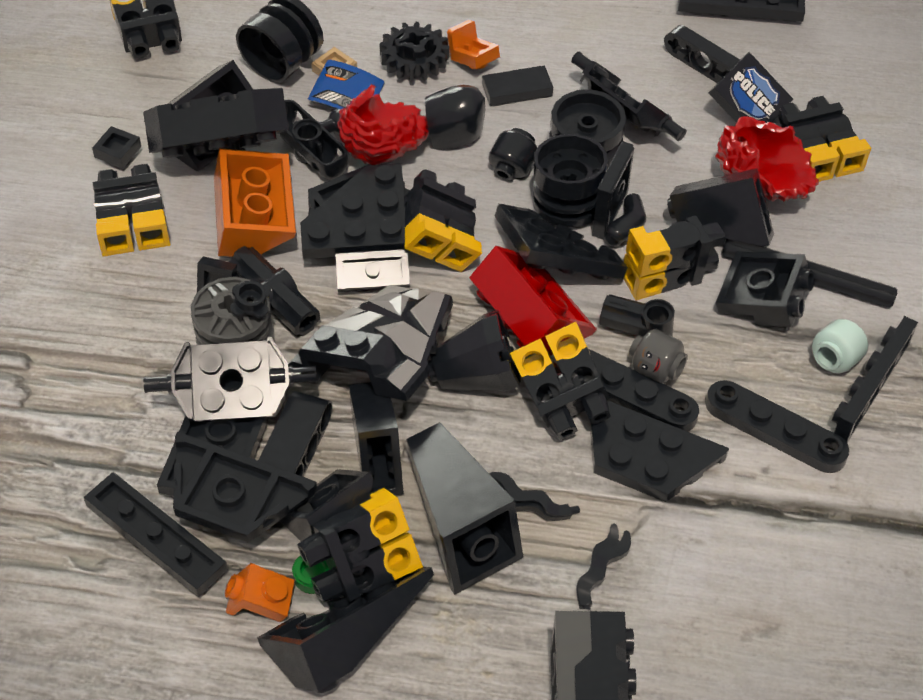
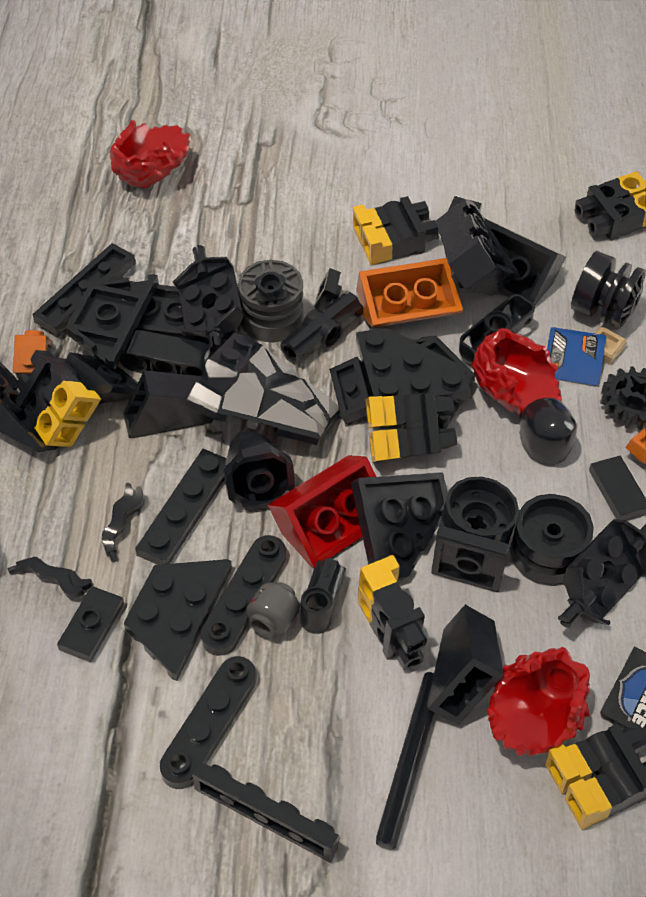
camera: 85 degrees right, 0 degrees up
(466, 509) = (93, 463): slope -> none
(513, 154) = (519, 479): black head -> none
(513, 438) = (182, 509): none -> black plate
(563, 393) = (231, 528): black hips -> none
(633, 217) = (447, 589): black arm -> none
(663, 529) = (90, 623): none -> black plate
(766, 287) = (373, 708): black plate -> none
(840, 346) = (304, 777): light aqua head -> none

